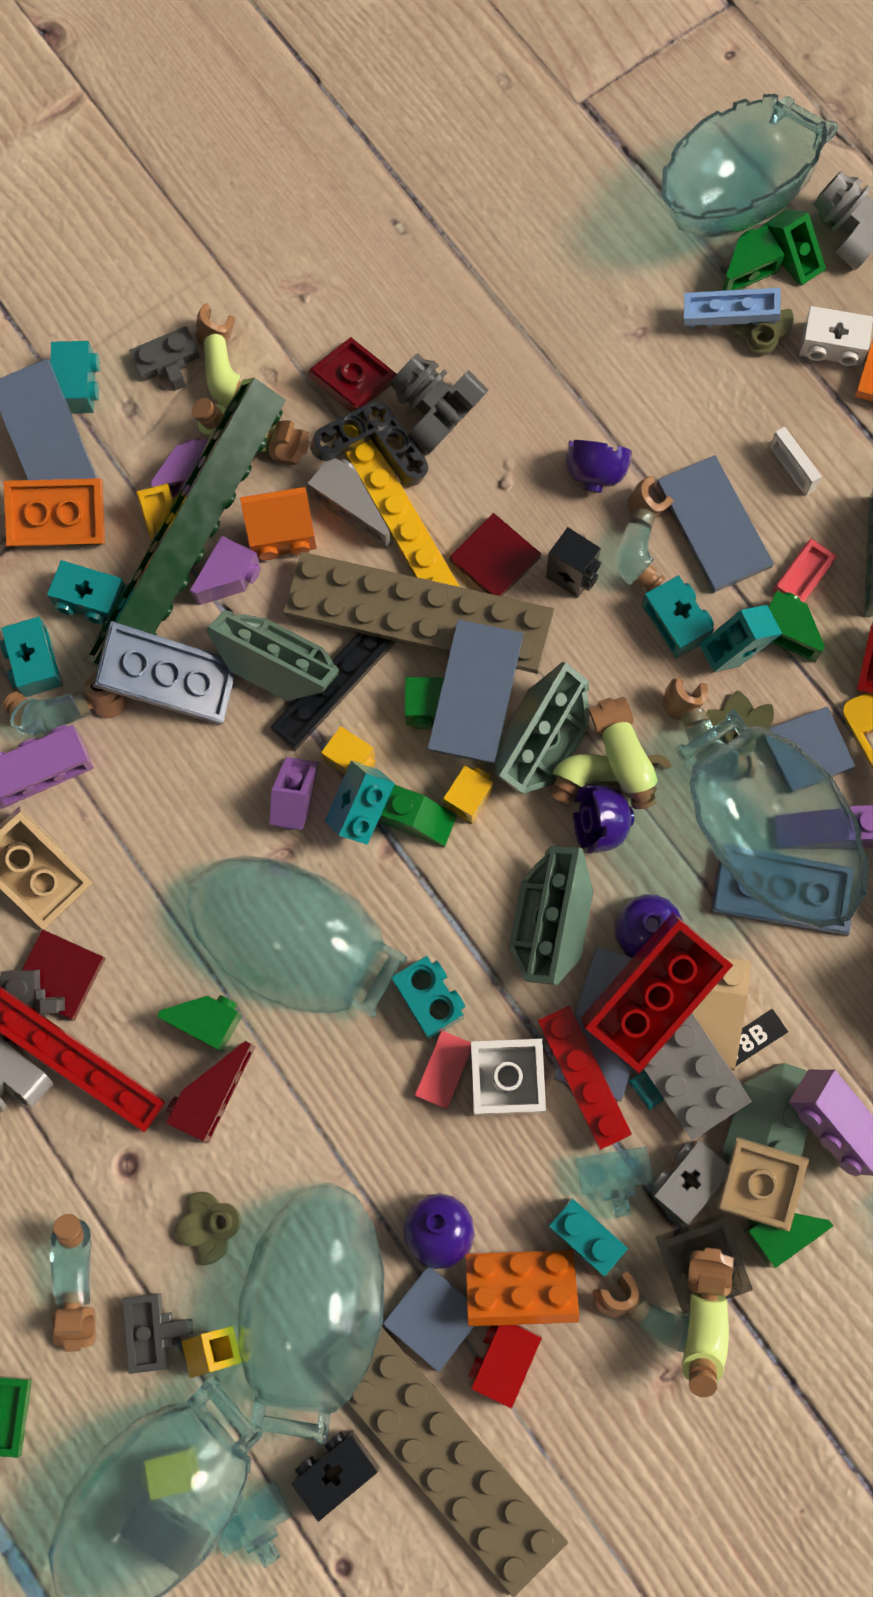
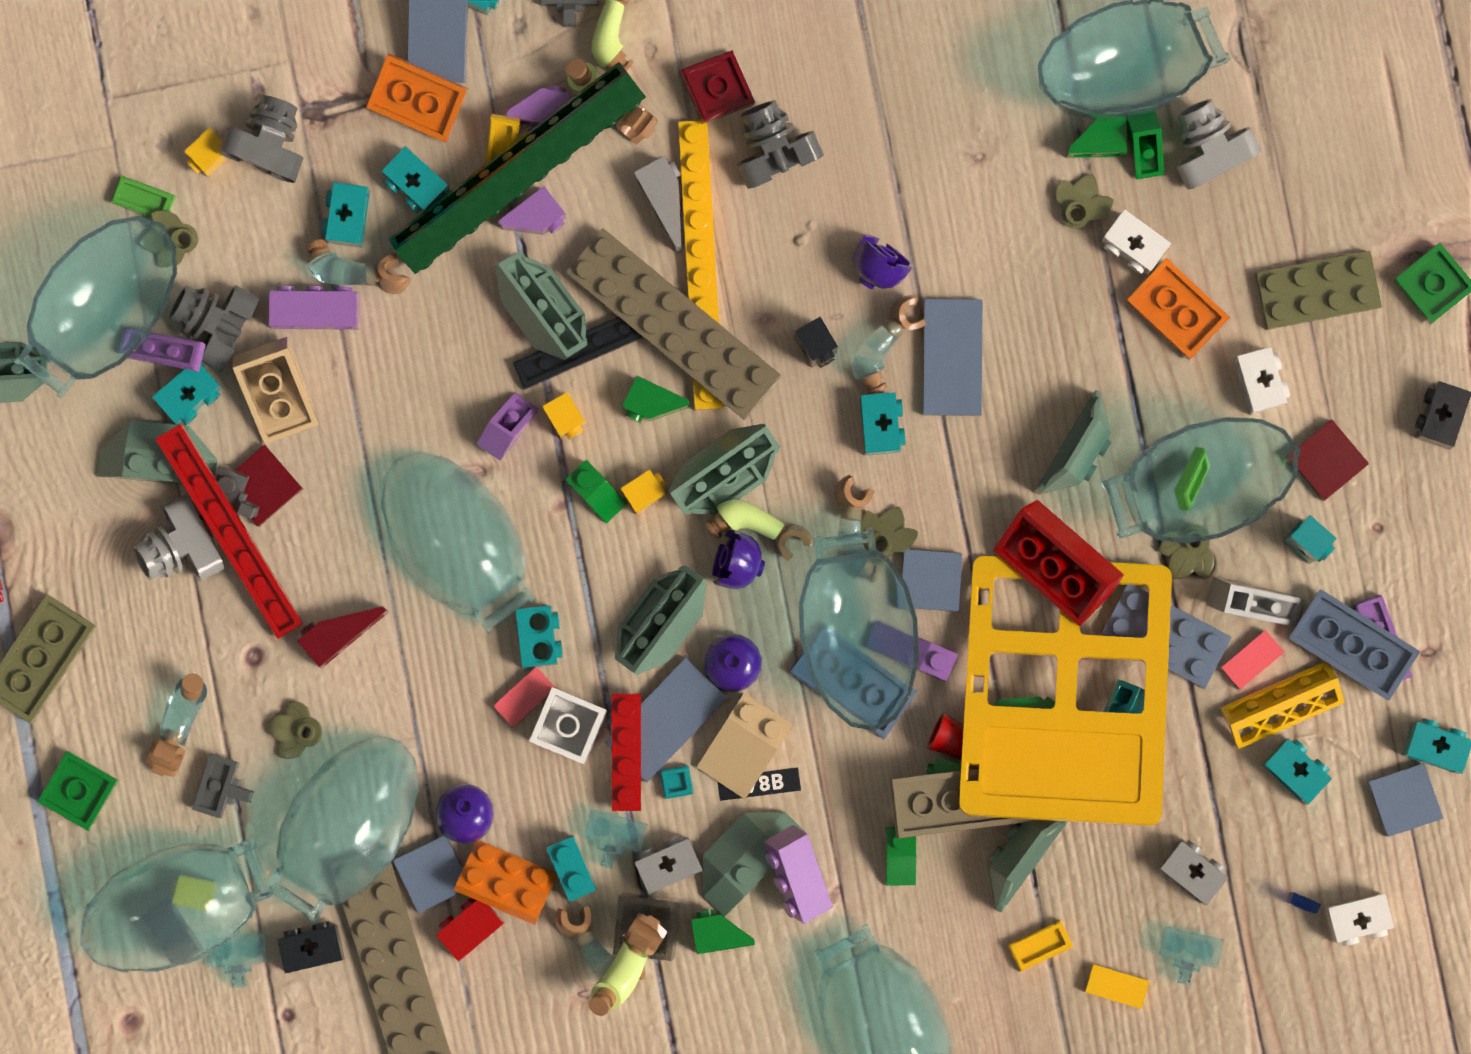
camera: 20 degrees right, 10 degrees up
(164, 673) = (447, 283): sand blue tile -> none
(205, 1019) = (359, 574): green slope -> none
(211, 1352) = (259, 822): yellow brick -> none
(279, 523) = (595, 198): orange slope -> none
(359, 802) = (553, 461): teal brick -> none
(378, 432) = (713, 154): black beam -> none
(476, 691) = (685, 415): sand blue tile -> none
(495, 556) = (760, 302): dark red tile -> none
(624, 752) = (778, 515): yellowish green piece -> none
(656, 992) = (707, 715): red slope -> none
(696, 1079) = (706, 788): light grey plate -> none
(732, 307) = (1059, 178): light blue plate -> none
(740, 638) = (916, 468): teal brick -> none
(763, 1183) = (717, 890): tan tile -> none
(795, 461) = (1043, 336): white tile -> none
(797, 626) = (966, 473): green slope -> none
(806, 570) = (1004, 434): coral tile -> none

